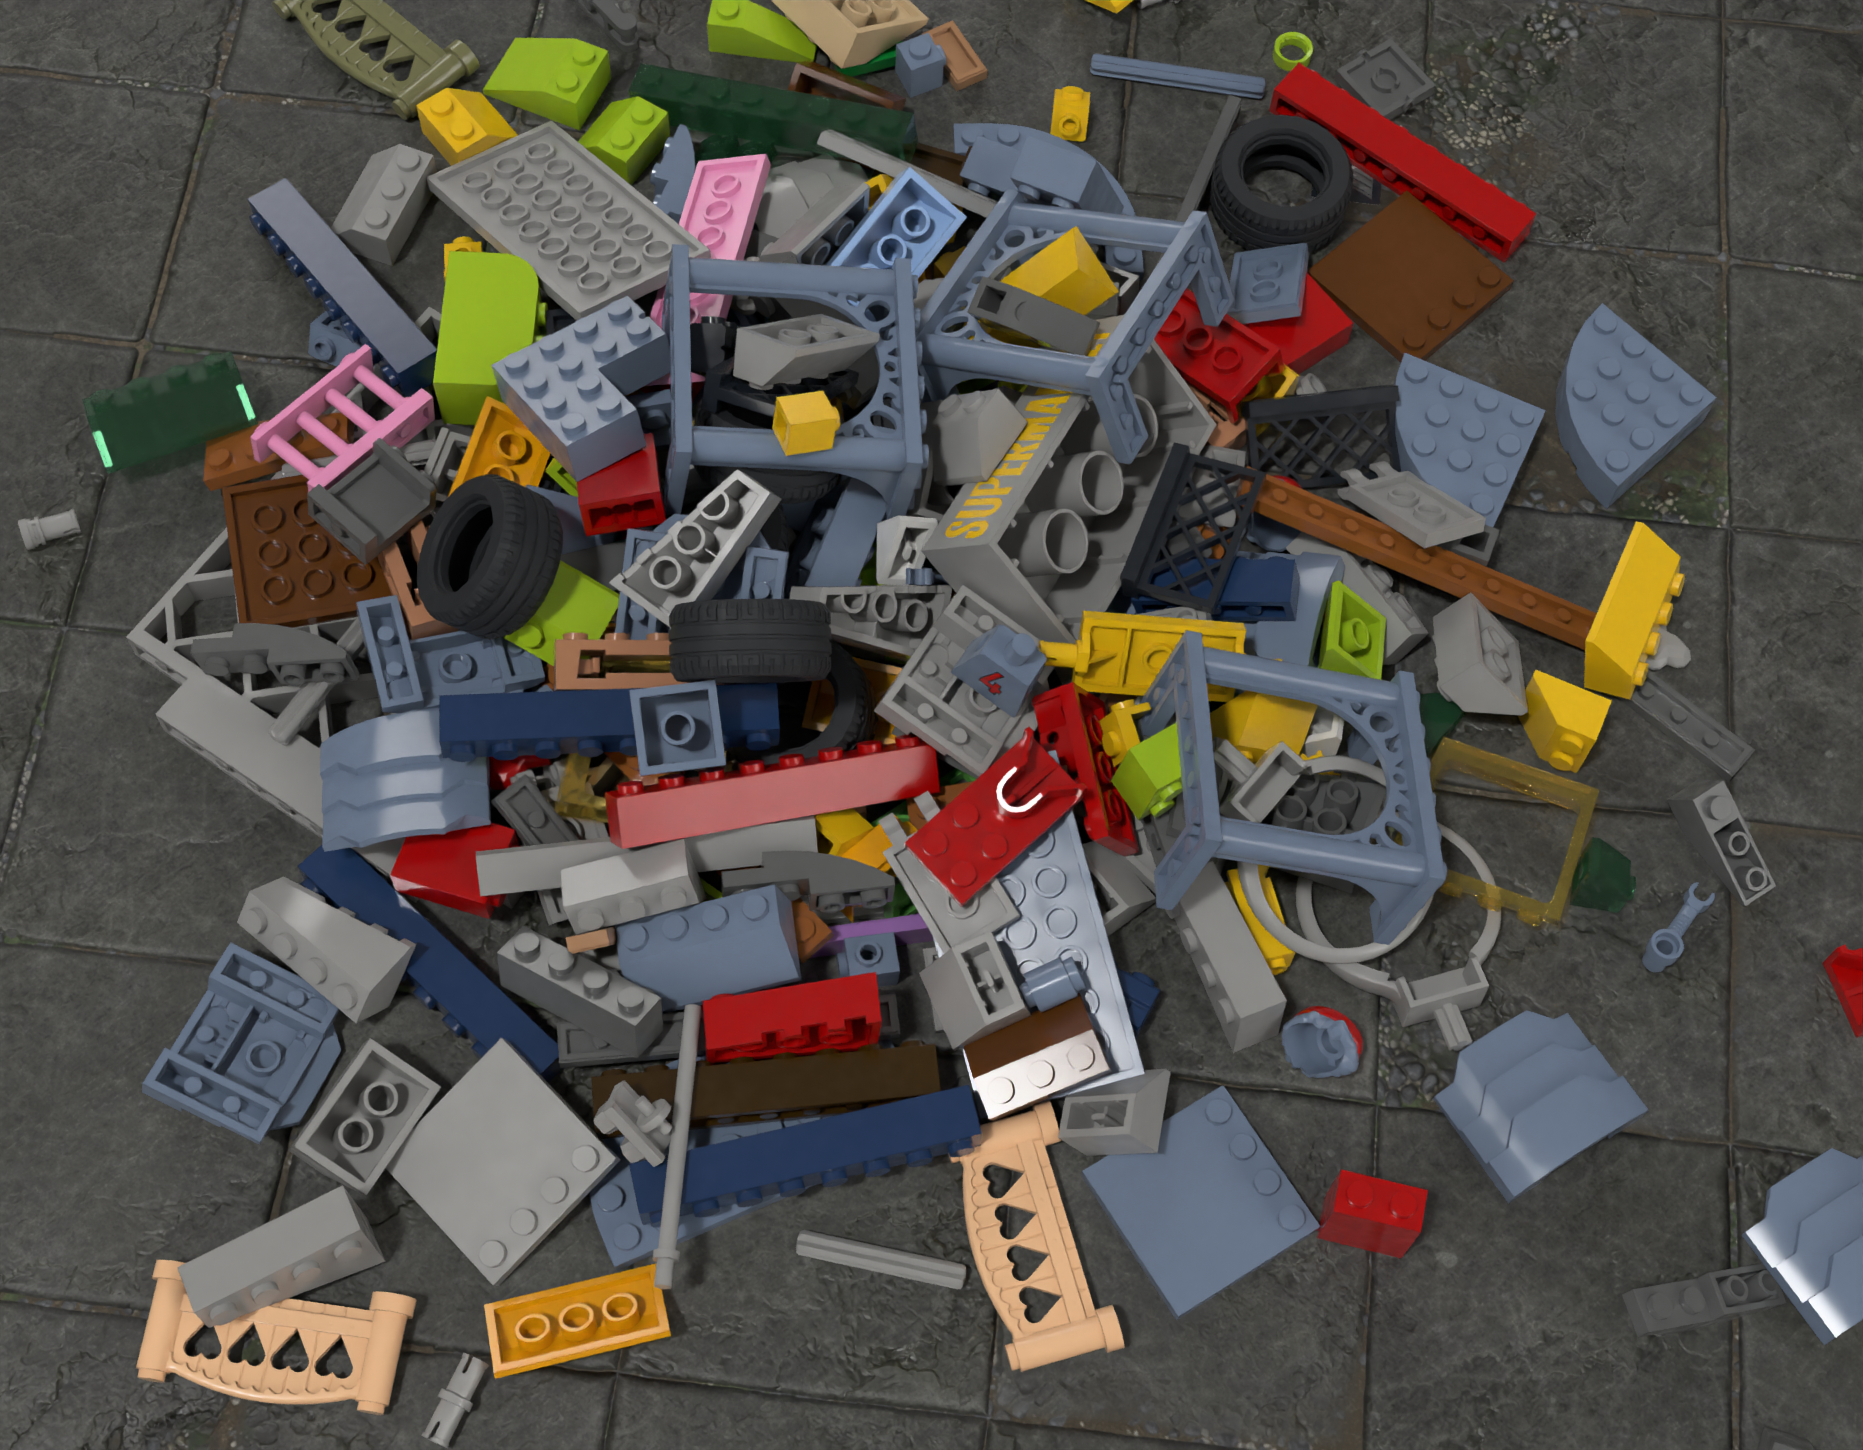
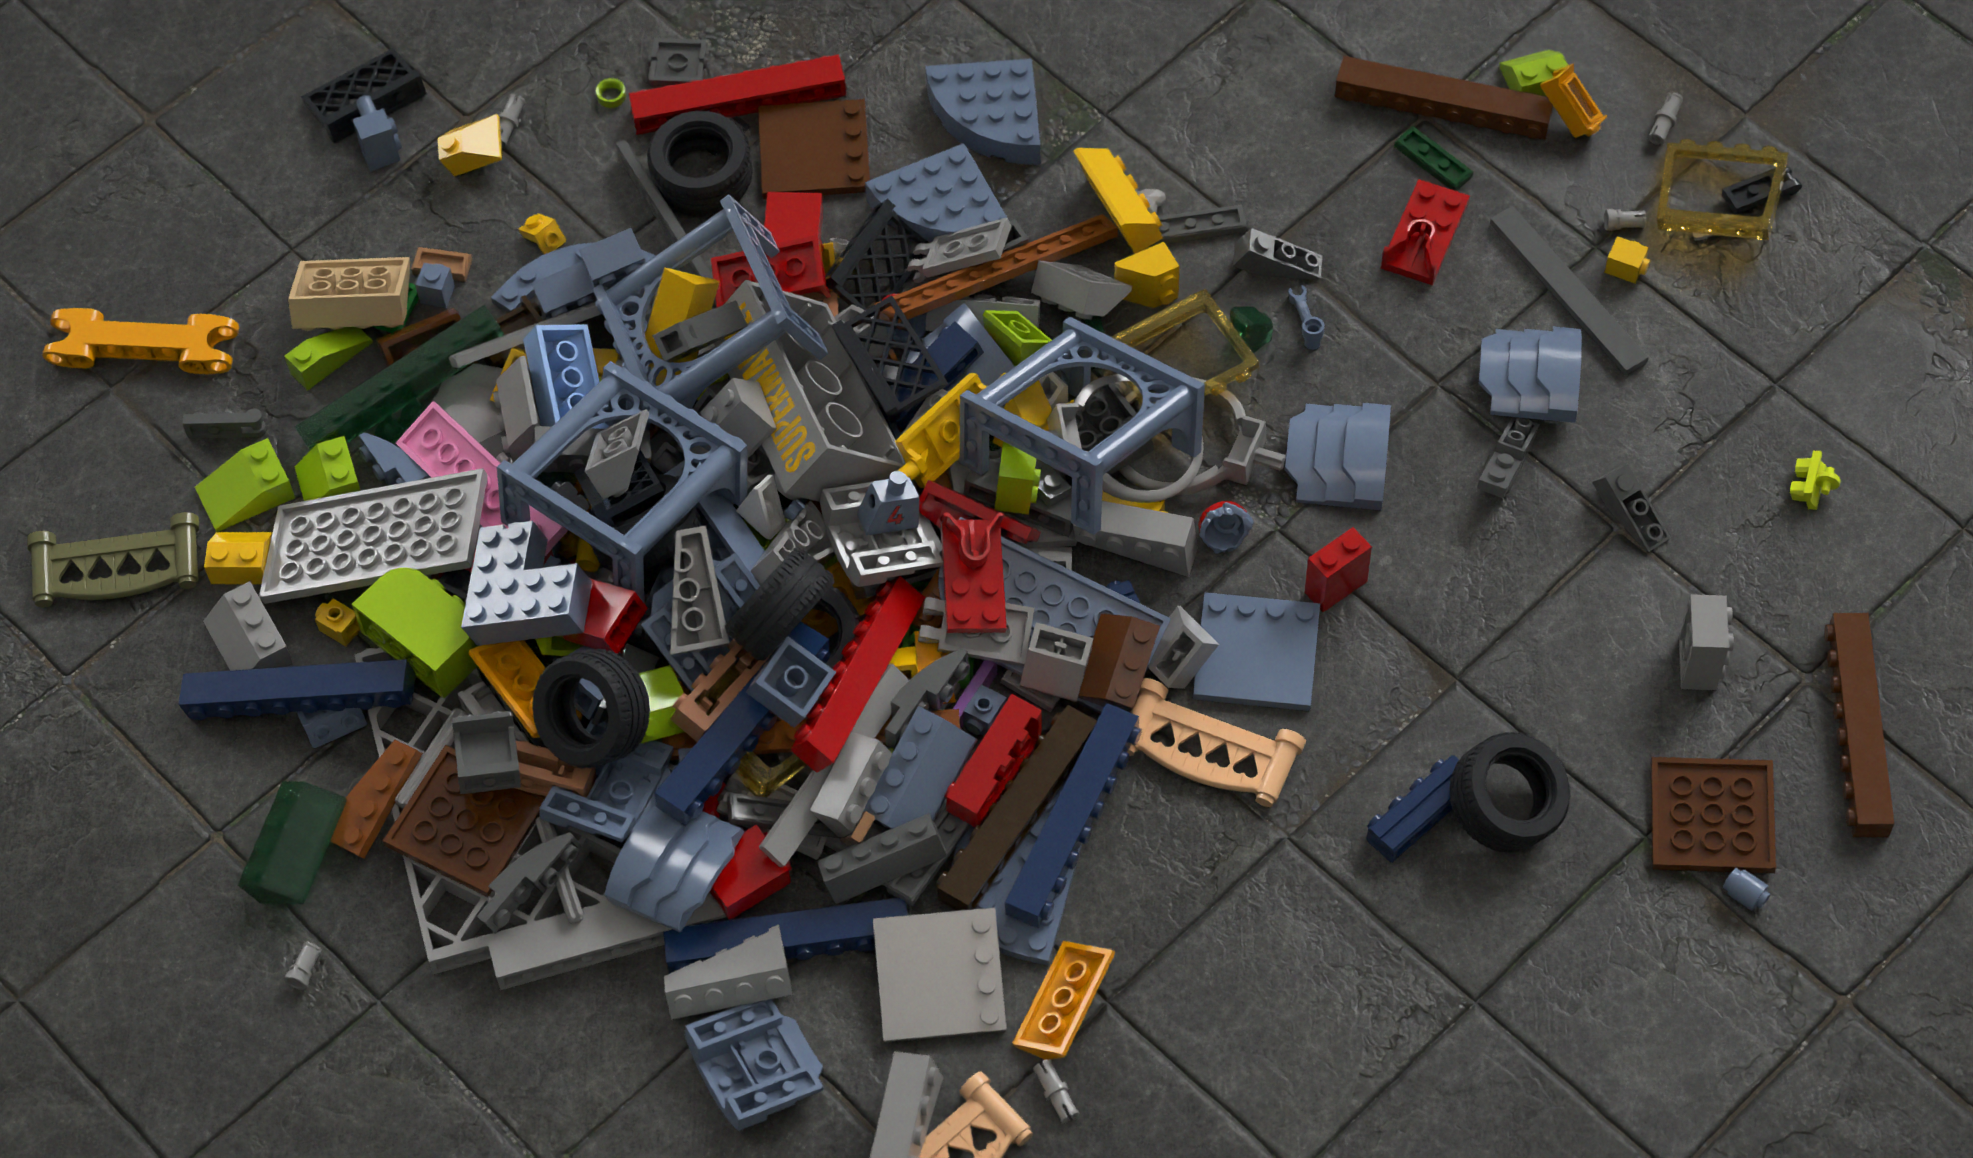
camera: 45 degrees left, 5 degrees down
(364, 1118) = (851, 1028): light grey slope -> none
(397, 429) = (436, 752): bright pink fence -> none
(640, 1122) = (991, 872): light grey hips -> none
(666, 1253) = (1073, 915): light grey bar -> none
(805, 422) = (675, 480): yellow brick -> none
(881, 1259) = (1156, 827): light grey axle -> none
(1052, 984) = (1087, 618): sand blue brick -> none
(1119, 728) = (973, 483): yellow bracket -> none
(1177, 76) = (570, 162): sand blue axle -> none
(1268, 283) = (766, 207): sand blue tile -> none

